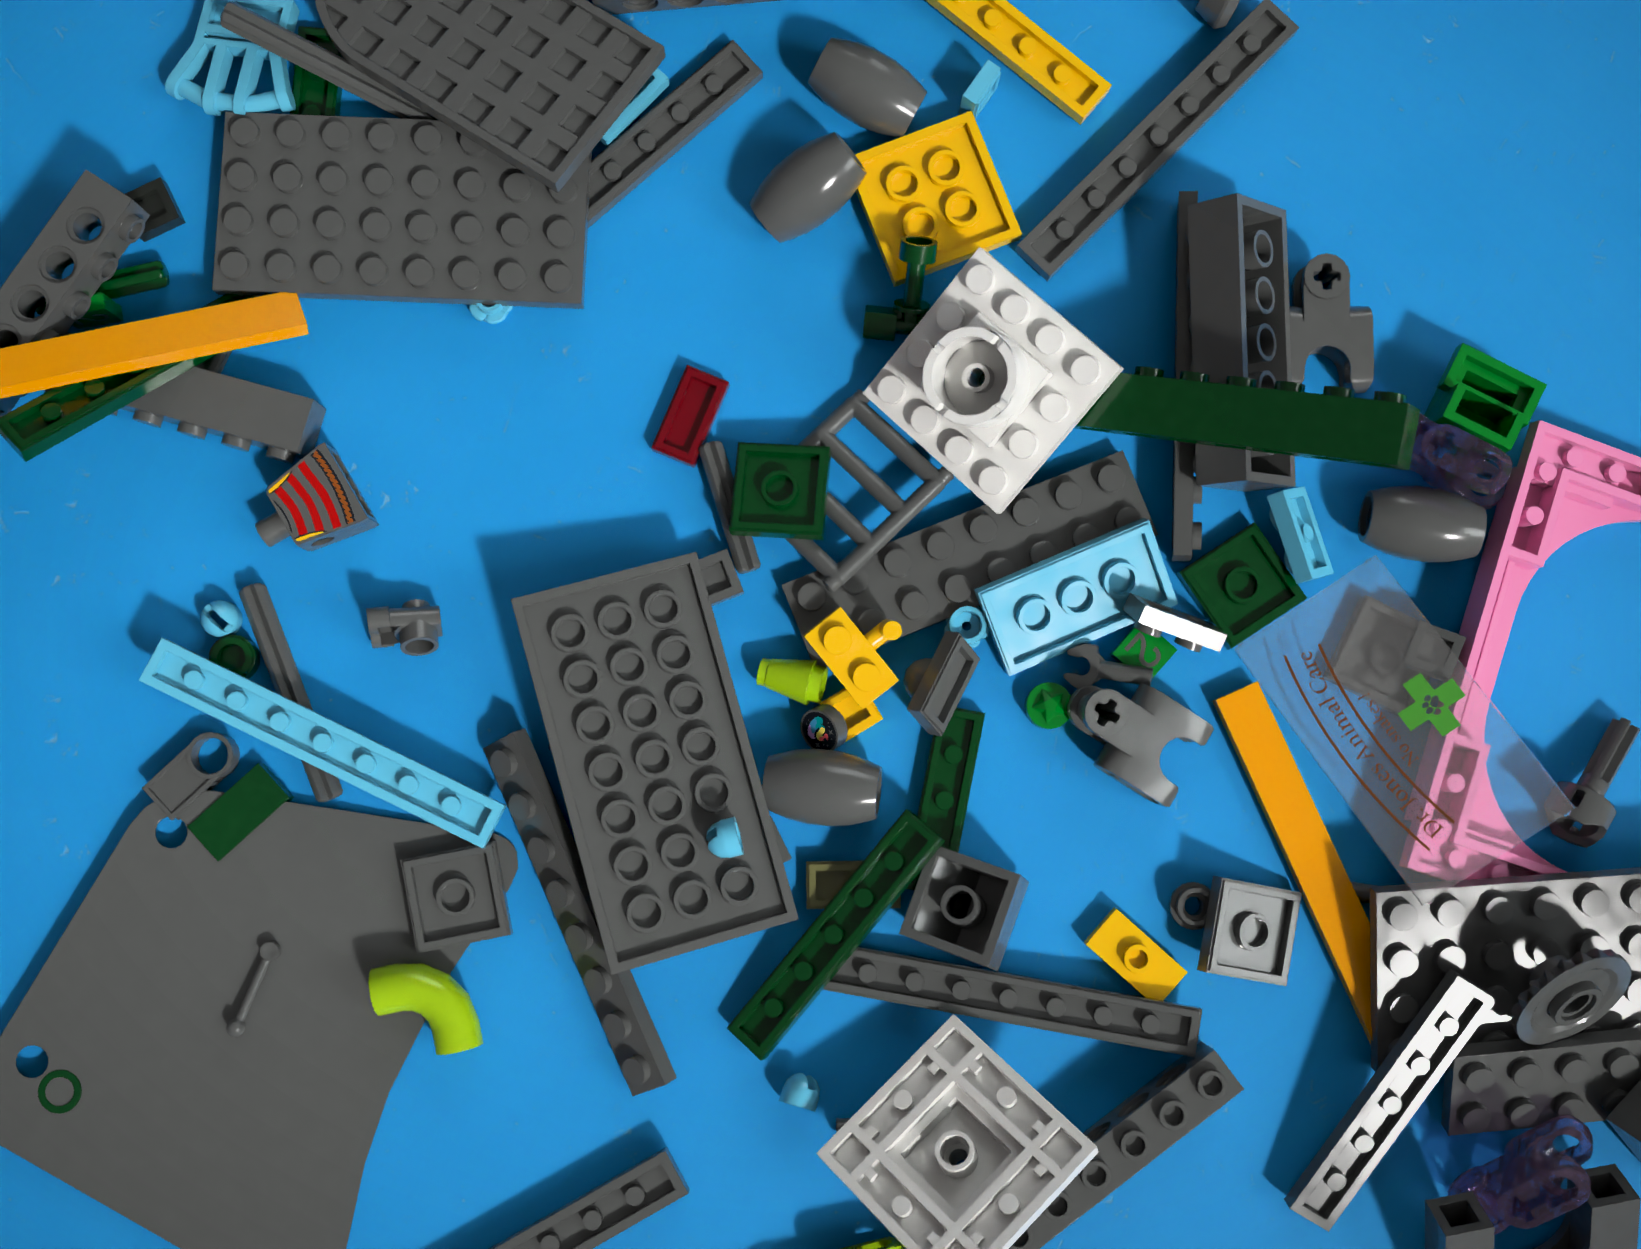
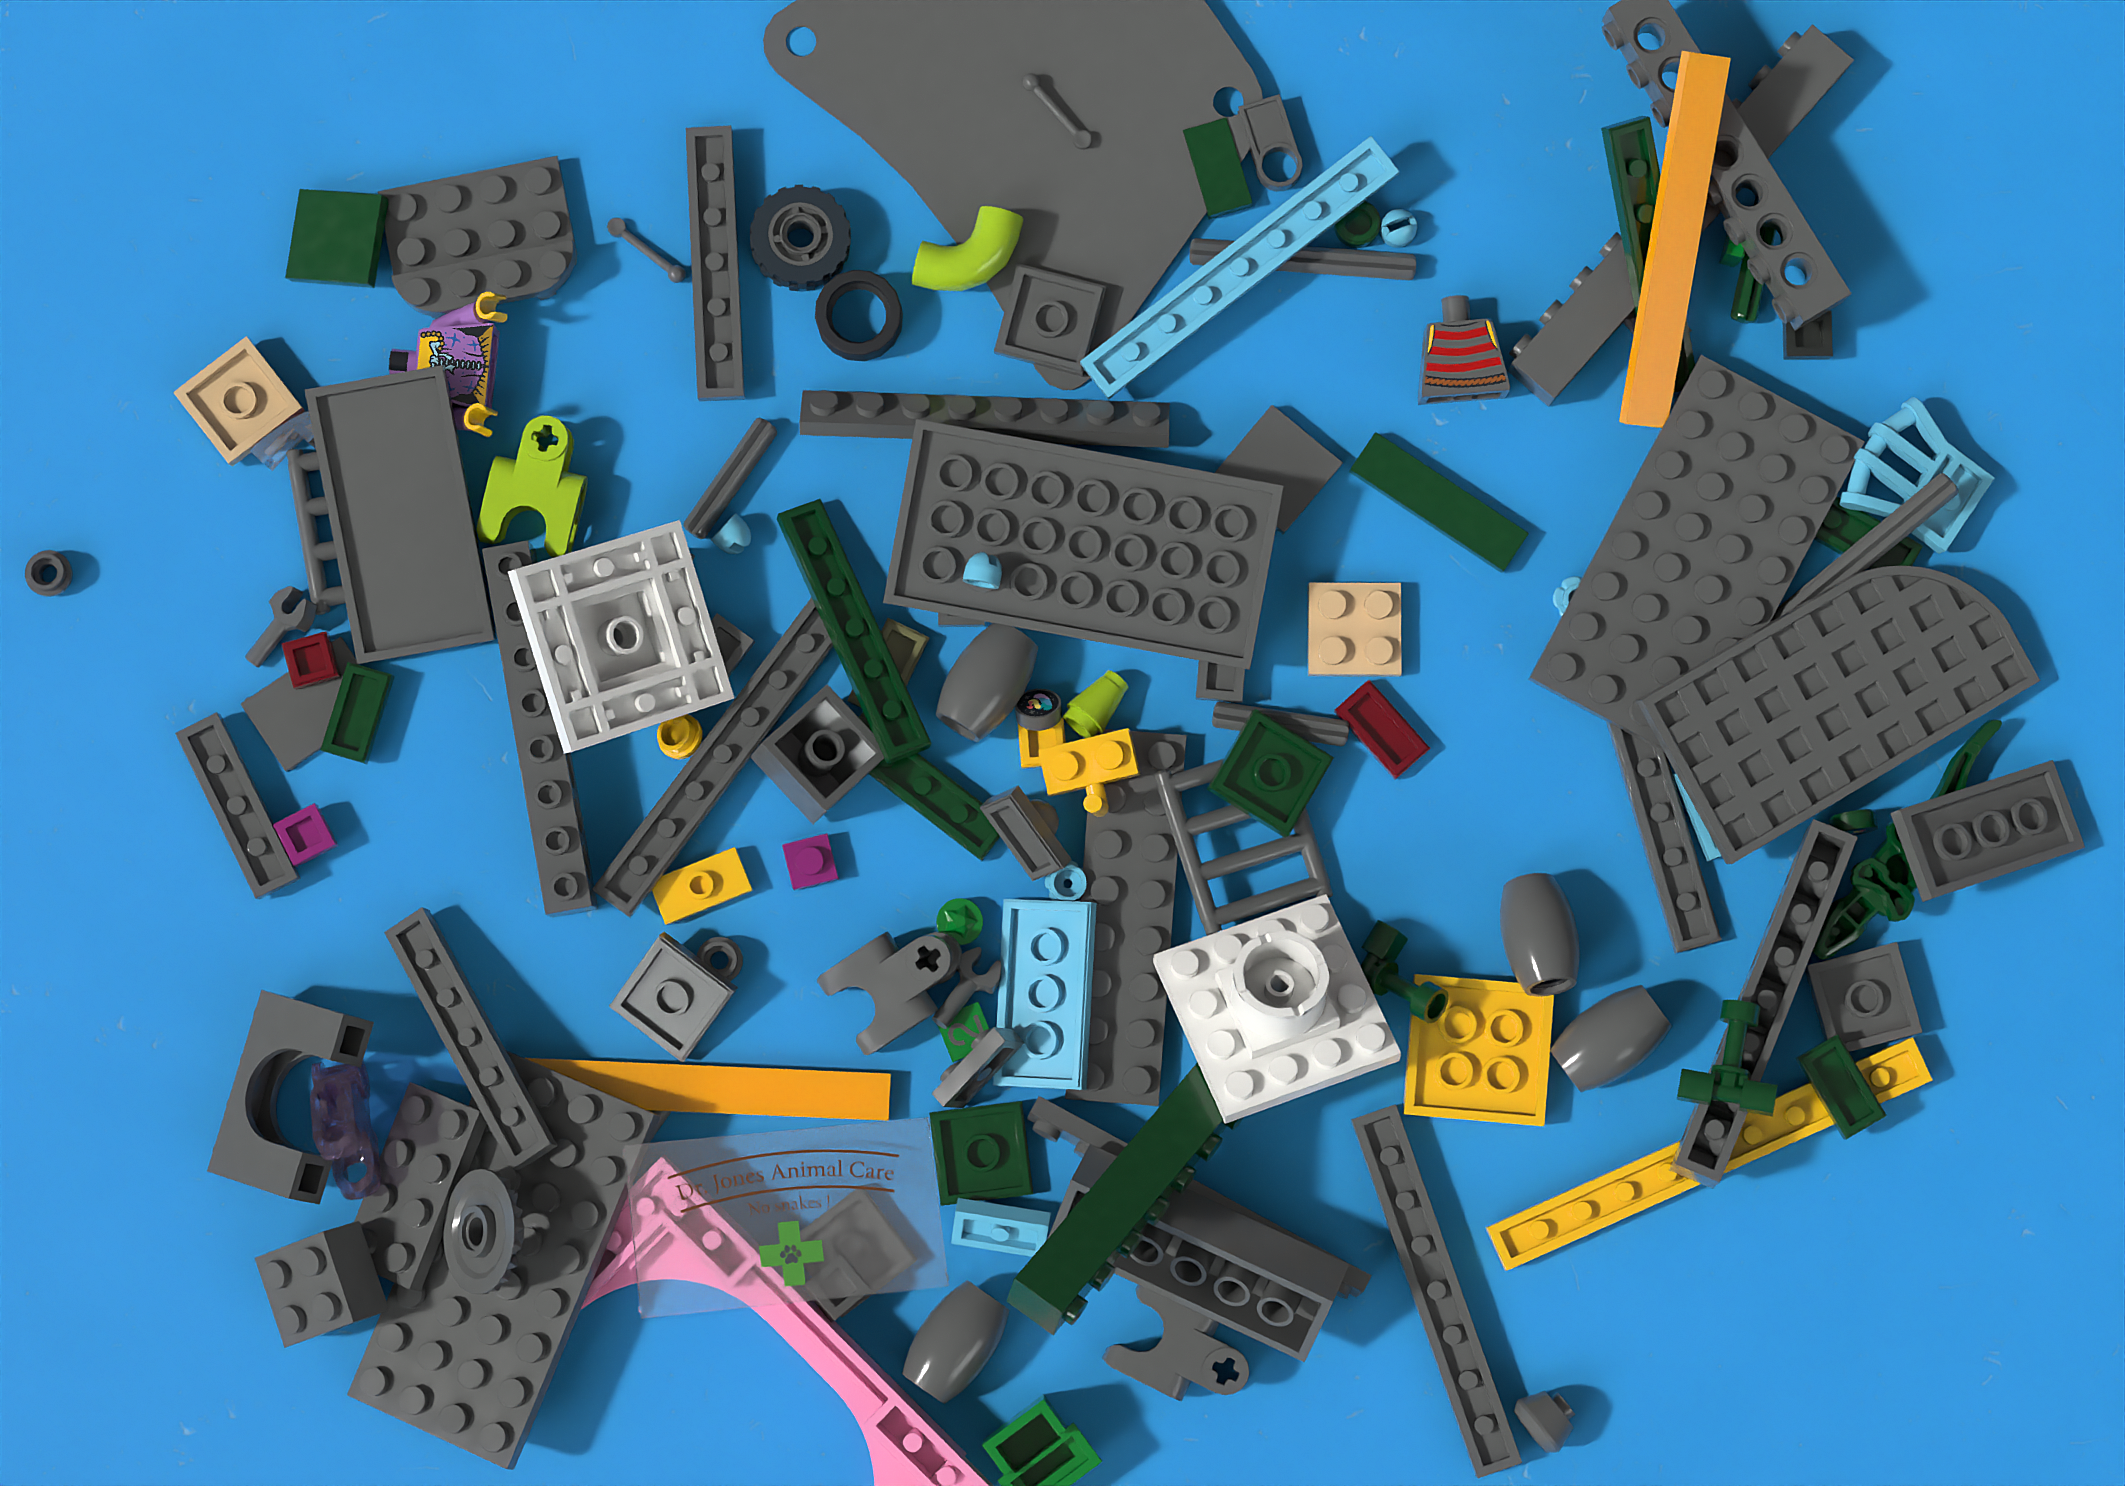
camera: 120 degrees right, 0 degrees up
(413, 626) = (1308, 393): dark grey plate -> none
(460, 463) = (1438, 502): none -> dark green tile
(466, 1194) = (793, 210): none -> black wheel
(484, 621) = (1286, 456): none -> dark grey tile
(501, 1091) = (861, 281): none -> black tyre
(611, 483) = (1354, 629): none -> tan plate
(748, 1122) = (730, 478): none -> dark grey axle
(901, 1043) = (731, 642): none -> dark grey plate
(980, 89) = (1559, 1144): medium azure tile -> none
(1012, 1044) = (679, 736): none -> yellow plate
(1063, 867) = (810, 862): none -> magenta plate
(1461, 461) = (1028, 1375): clear purple piece -> none
(1588, 794) = (633, 1352): dark grey piece -> none

